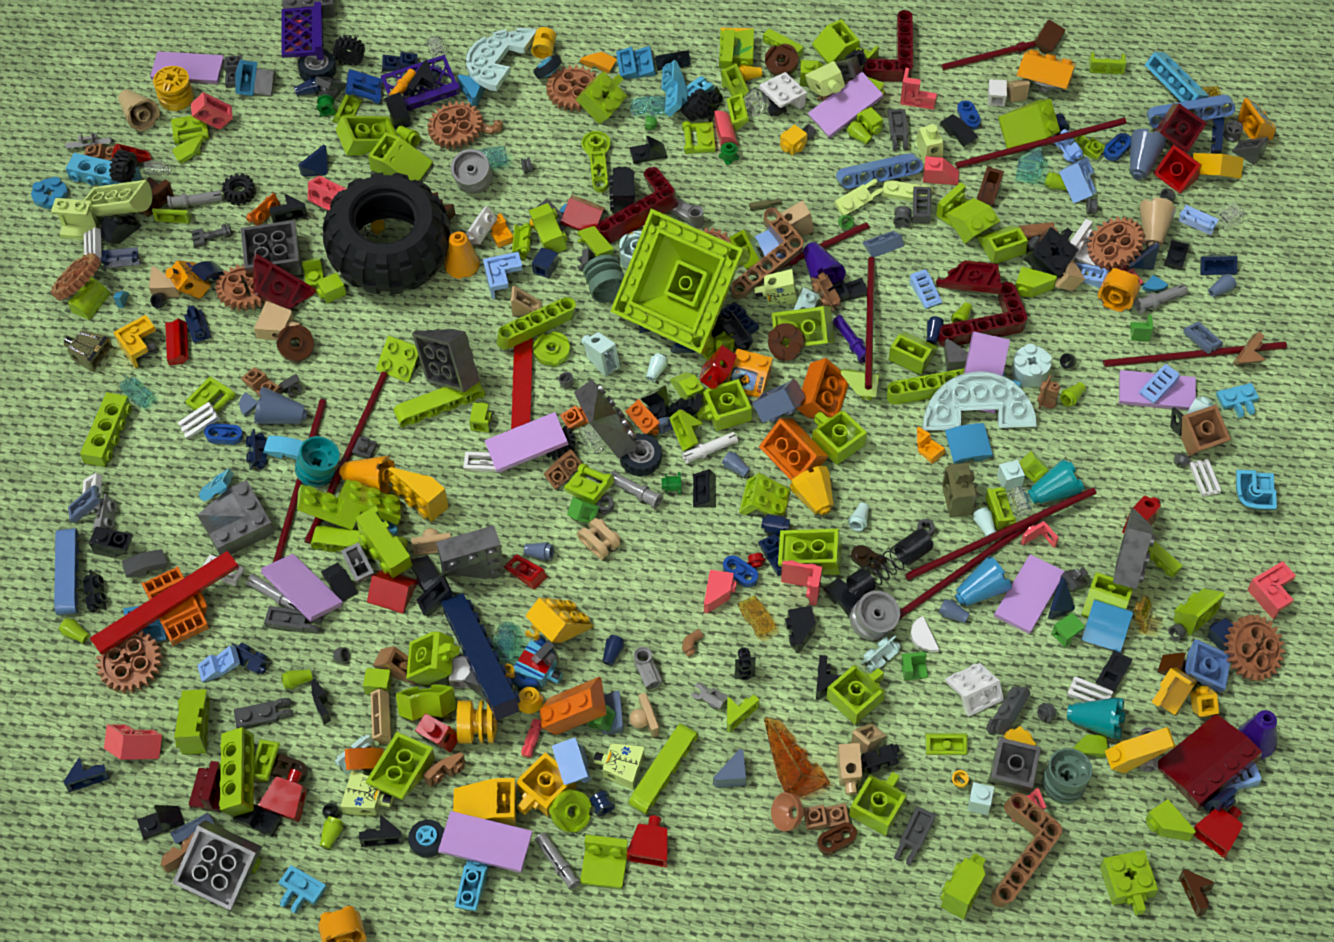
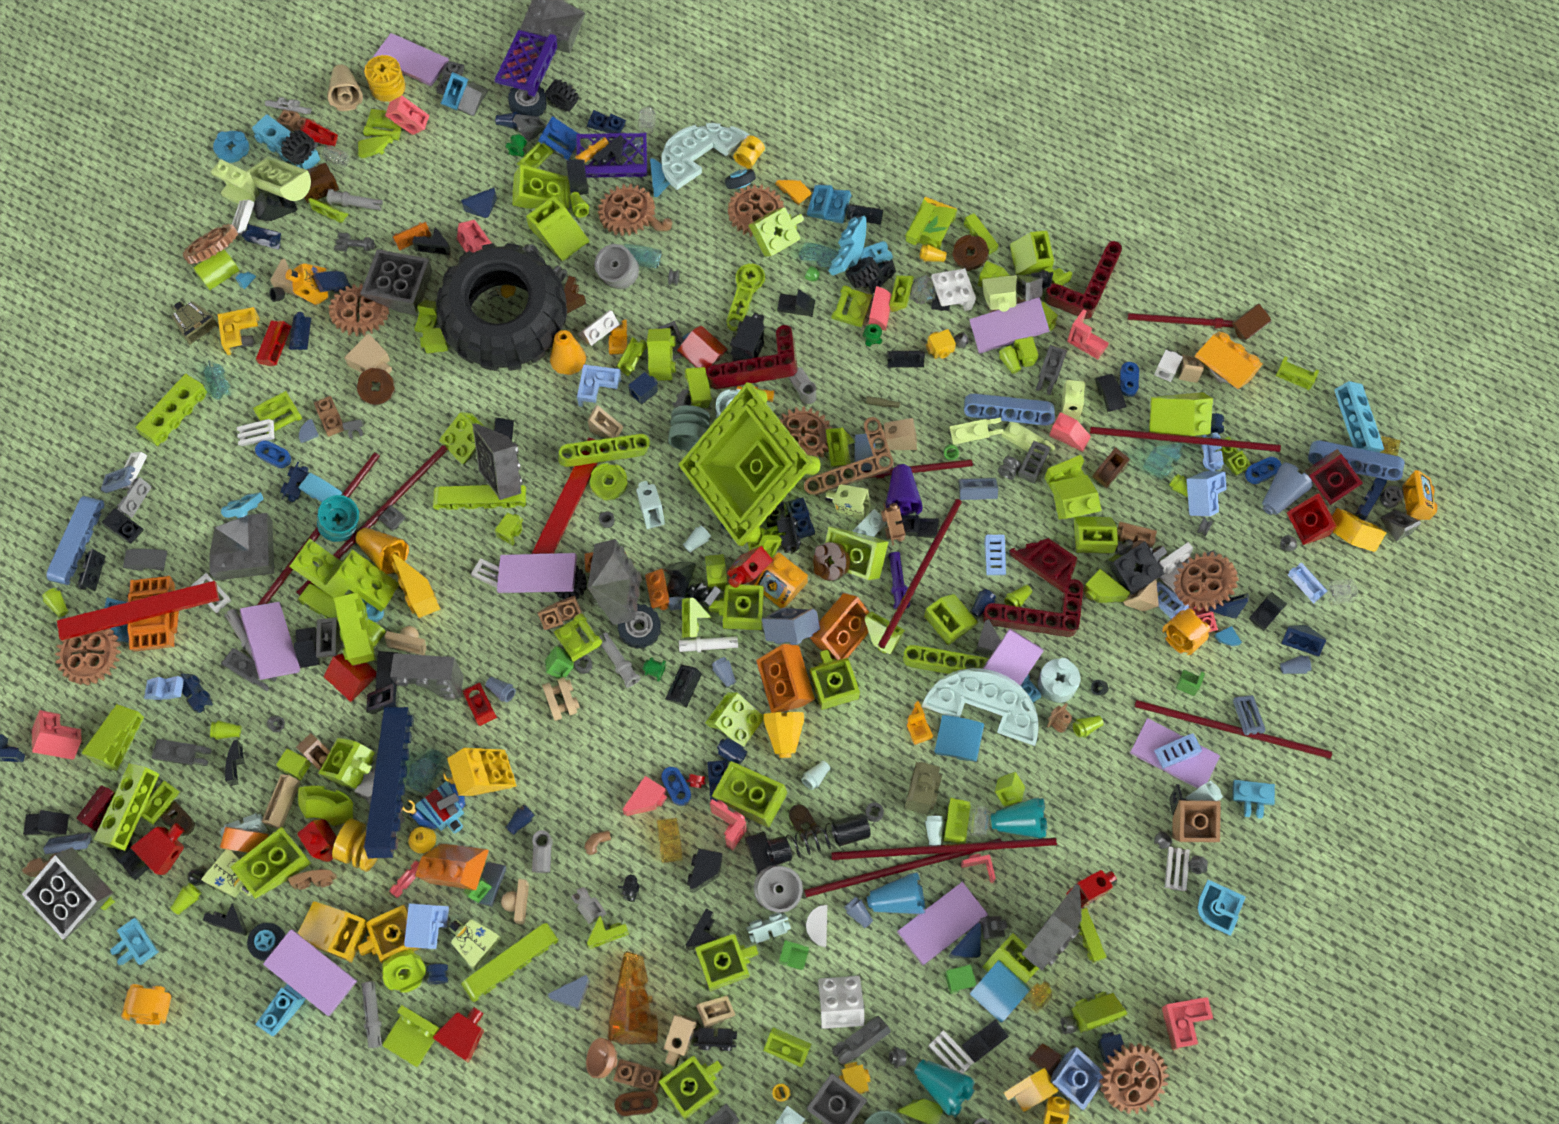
camera: 20 degrees right, 10 degrees up
(237, 181) = (403, 212): black tyre -> none
(278, 285) = (385, 321): dark red wing -> none
(278, 409) = (329, 448): sand blue cone -> none
(733, 80) = (912, 260): lime slope -> none
(766, 163) = (905, 359): none -> black hinge
(1010, 475) = (982, 790): light aqua brick -> none
(1154, 300) = (1218, 655): light grey pin -> none
(1156, 219) = (1261, 570): tan cone -> none
(1221, 466) = (1198, 864): none -> dark grey plate
(1247, 354) = (1284, 752): medium nougat slope -> none

